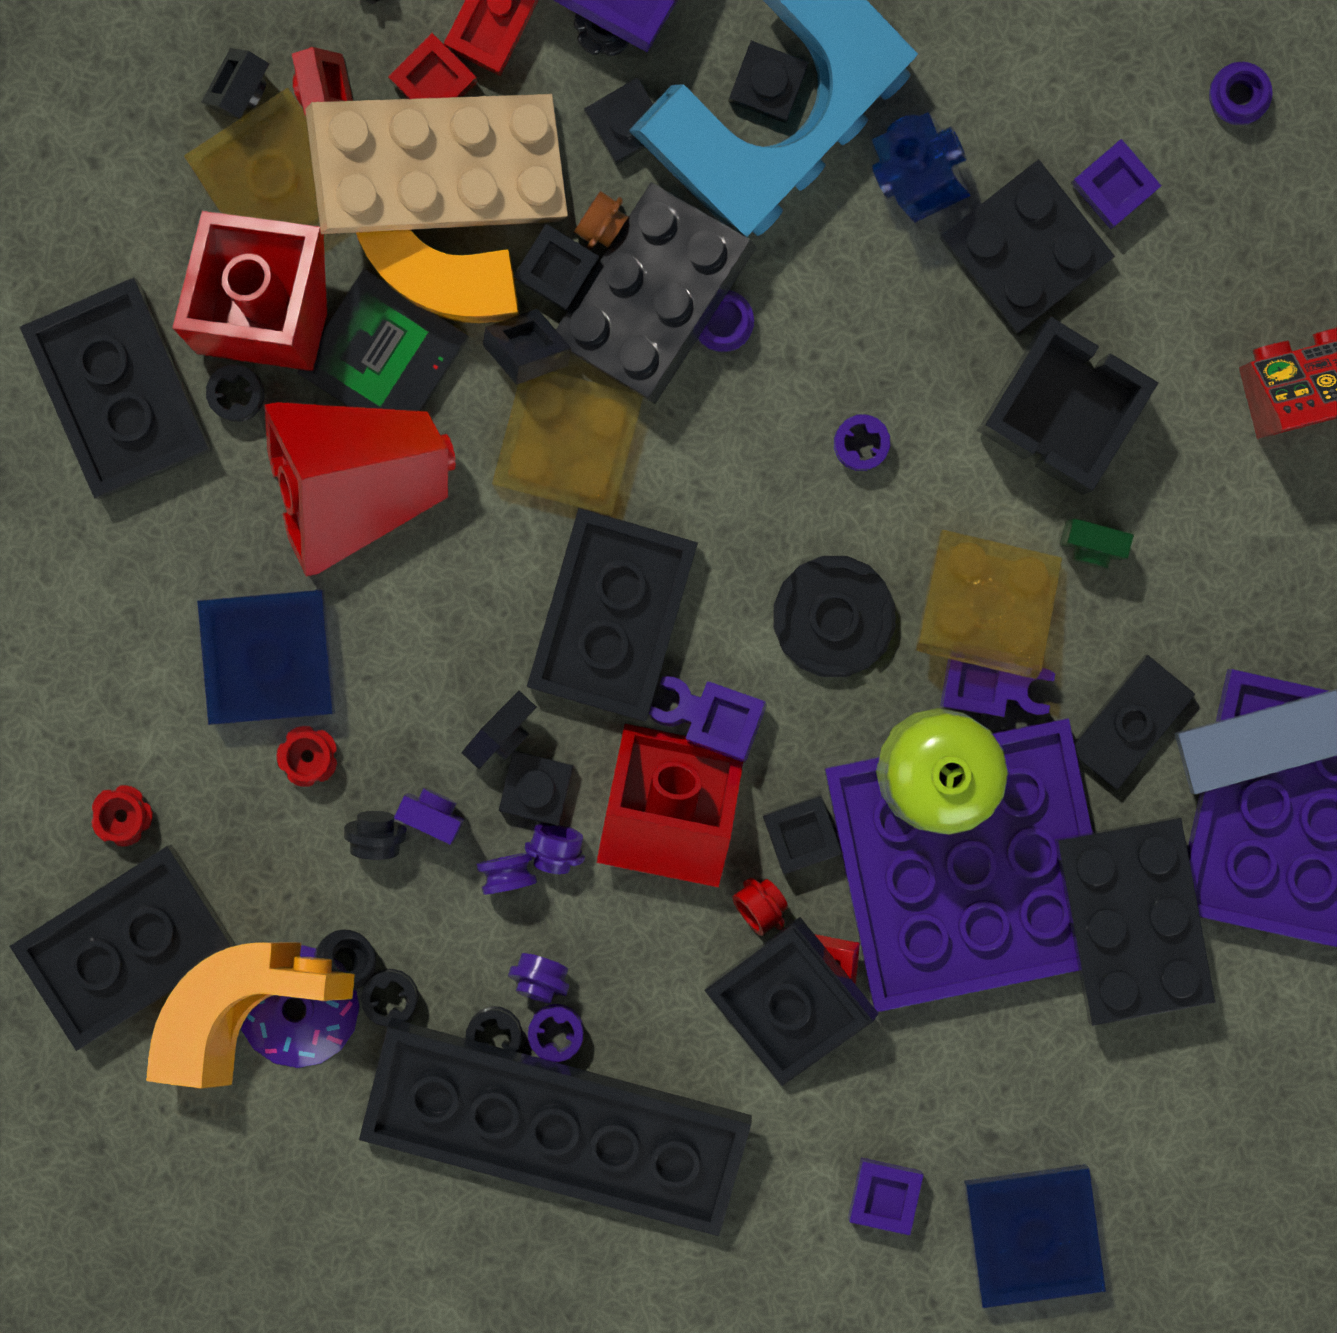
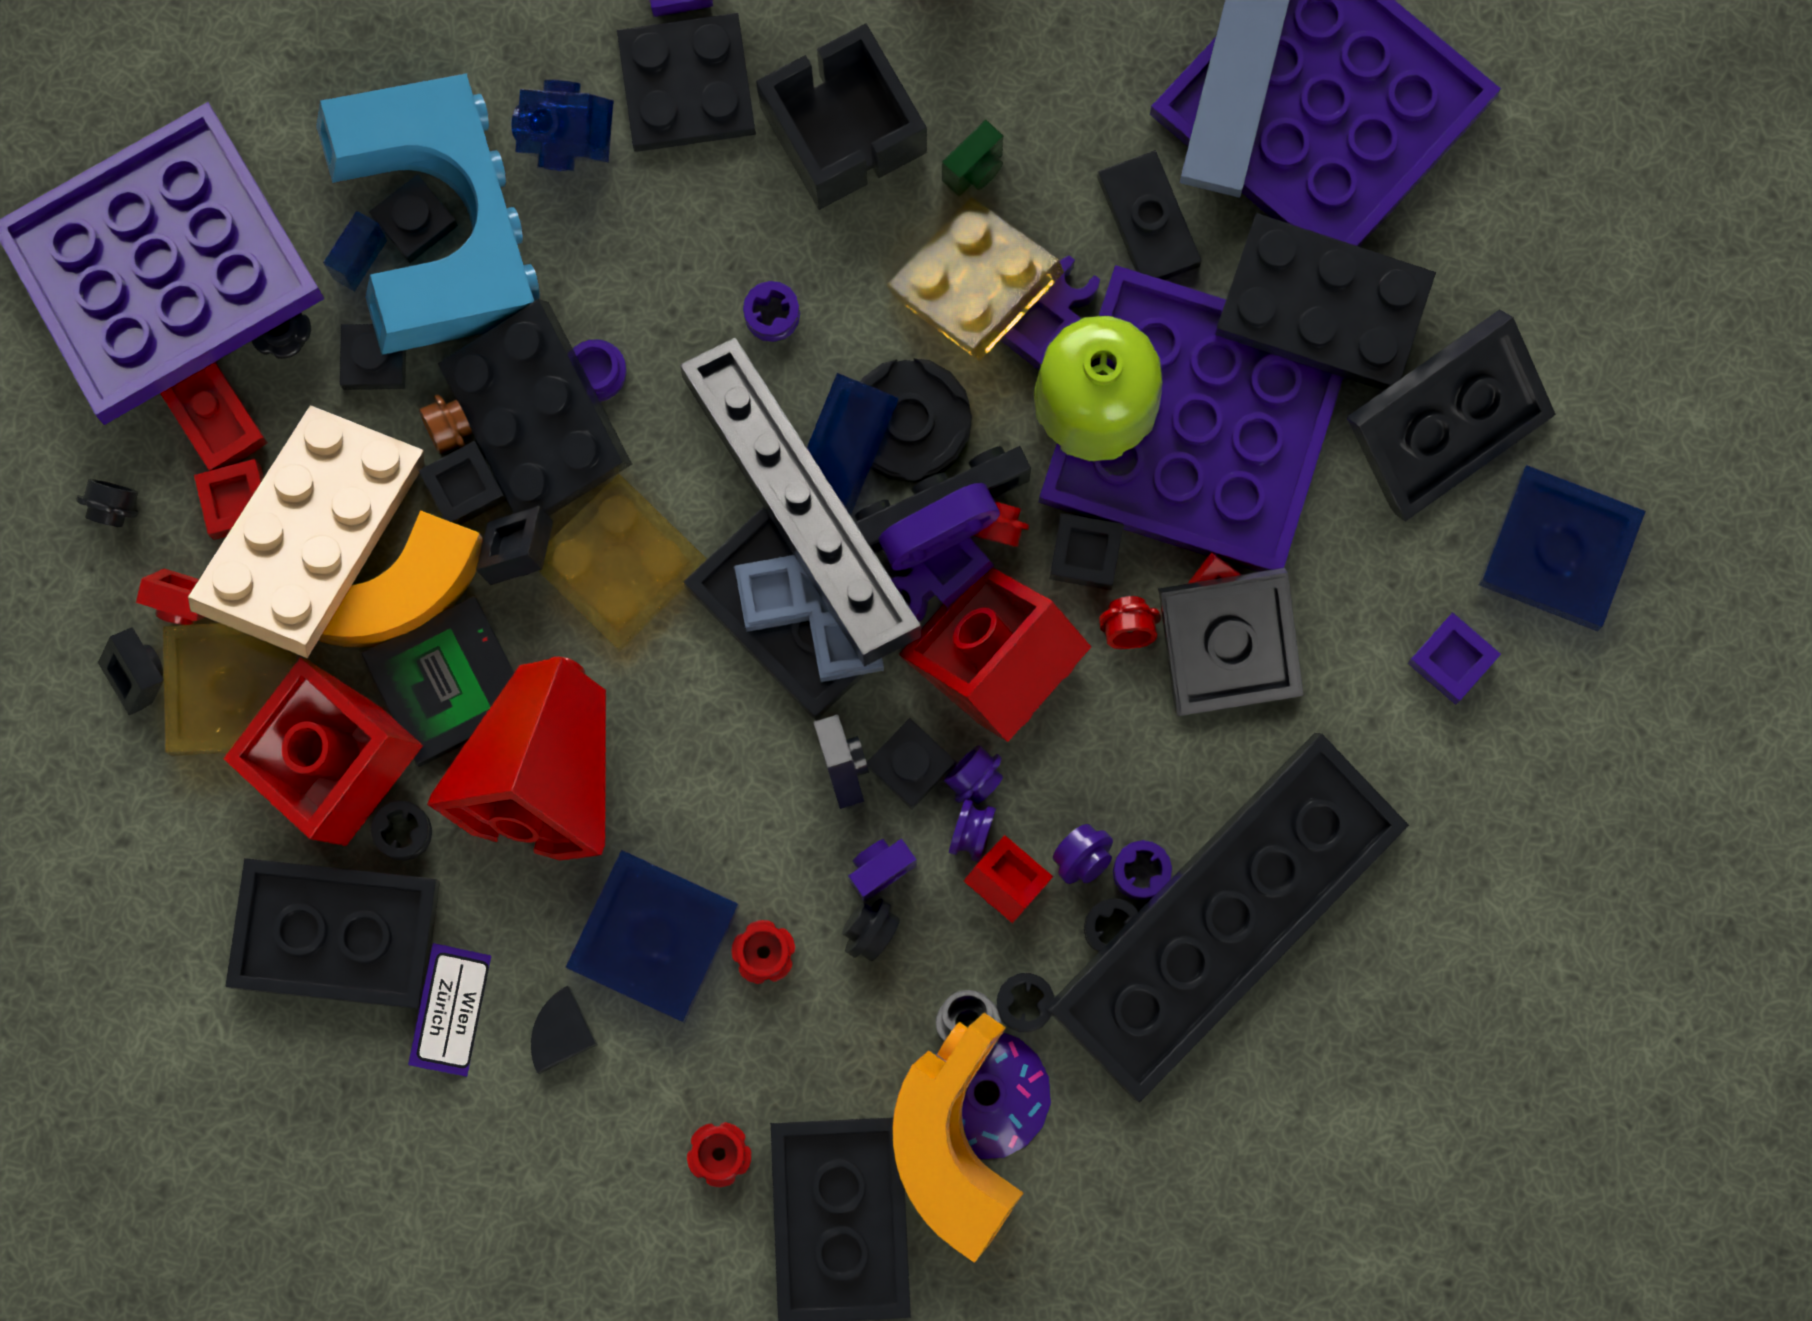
camera: 55 degrees left, 10 degrees down
(110, 523) = (449, 1010): none -> sticker
(145, 625) = (559, 1032): none -> black tile
(482, 927) = (1008, 878): none -> red plate
(624, 611) = (781, 594): none -> sand blue tile
(700, 570) = (801, 502): none -> plate
(708, 51) = (355, 251): none -> clear blue tile
(745, 702) = (939, 526): none -> dark purple beam
(774, 682) = (993, 467): none -> black plate
(777, 574) = (850, 435): none -> clear blue tile
(782, 745) = (1006, 527): none -> red plate
(1096, 1083) = (1452, 415): none -> black plate

